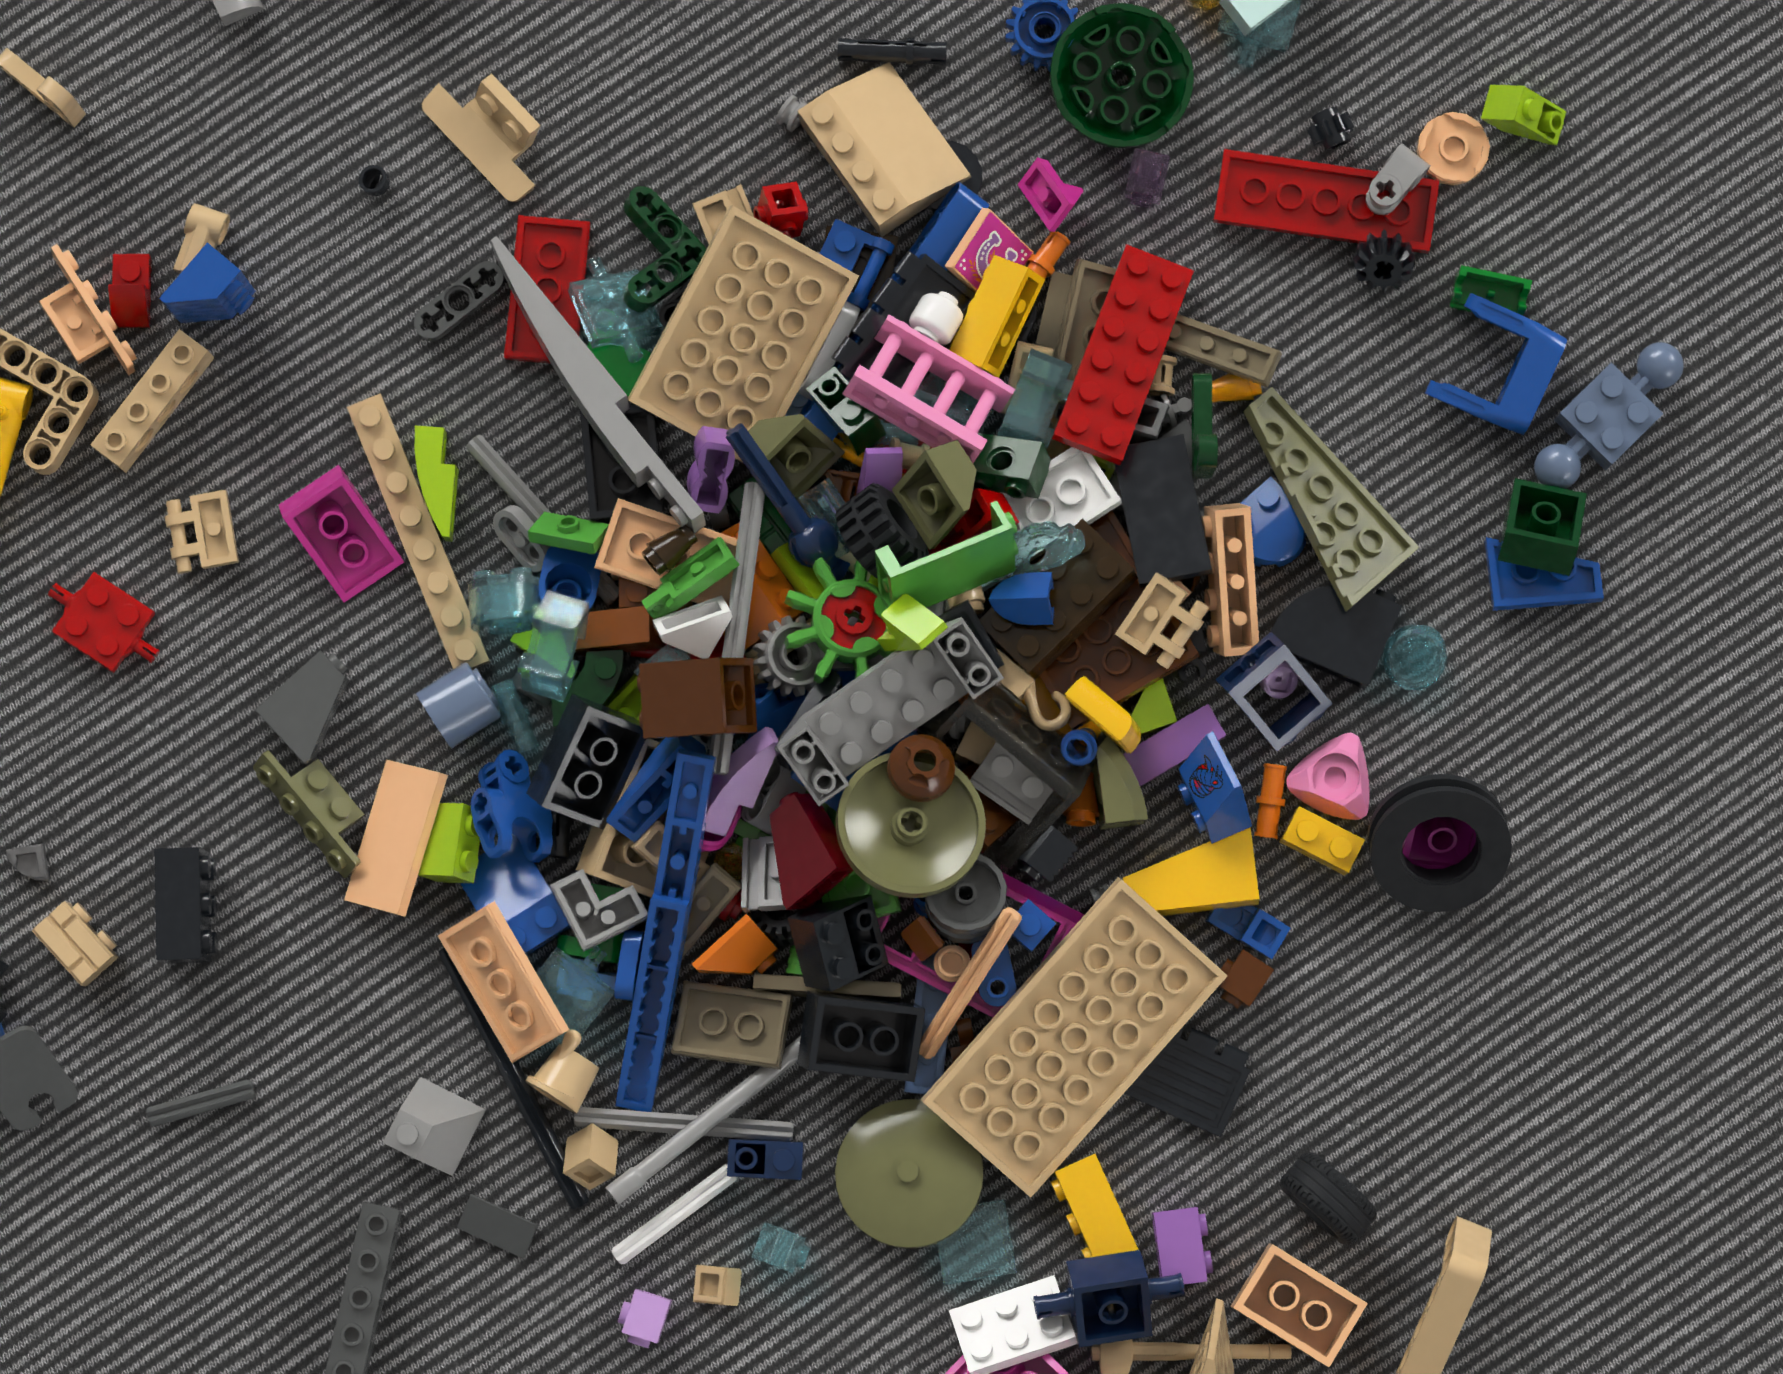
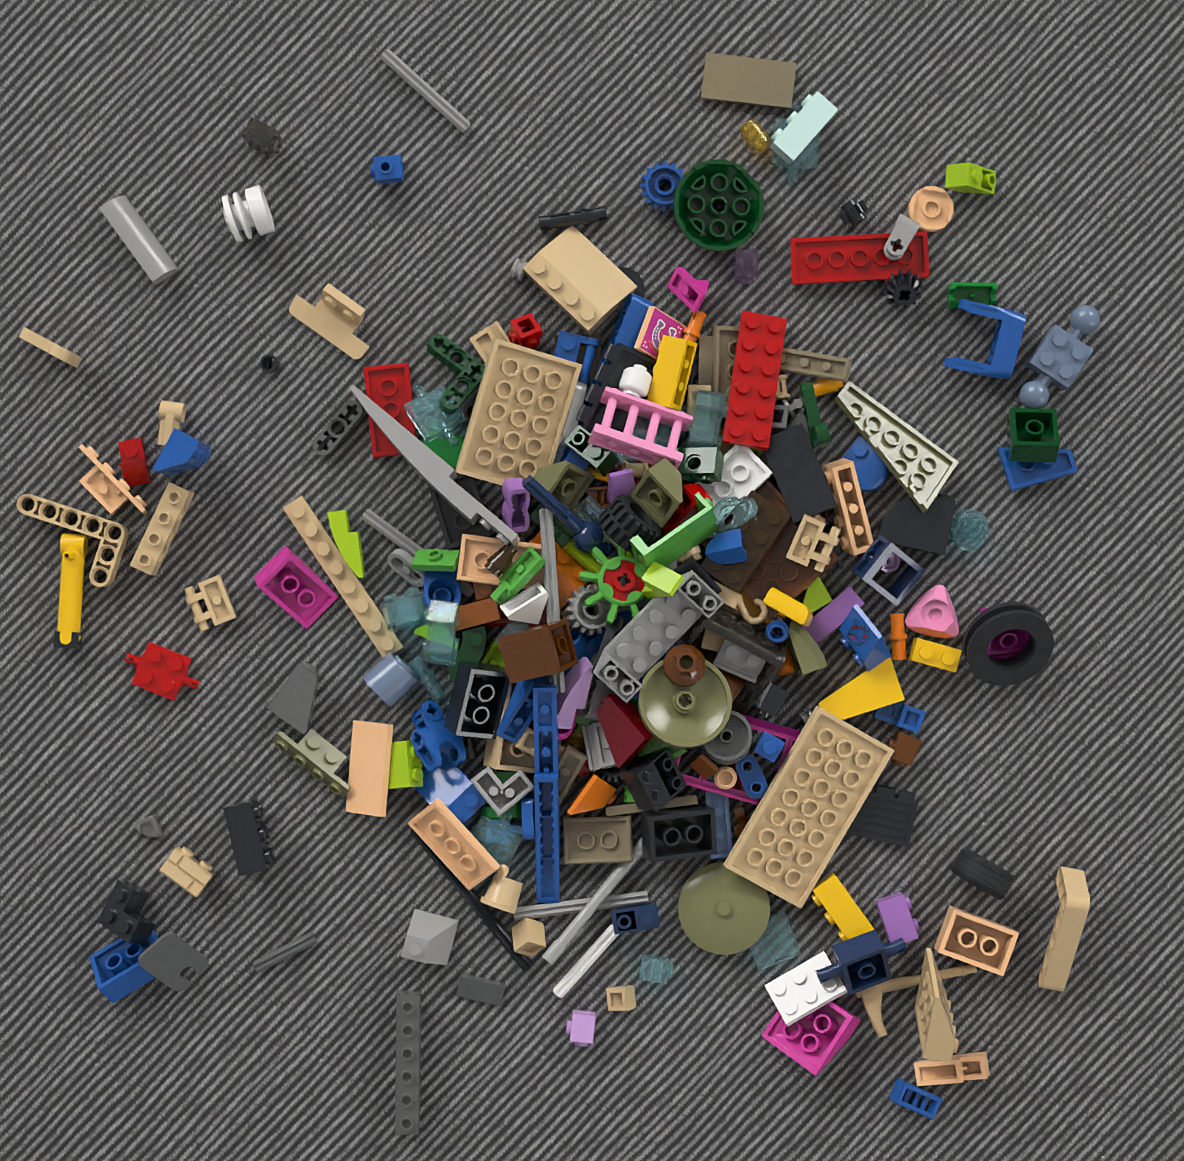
camera: 15 degrees left, 5 degrees up
(969, 982) = (738, 787): light nougat axle -> none

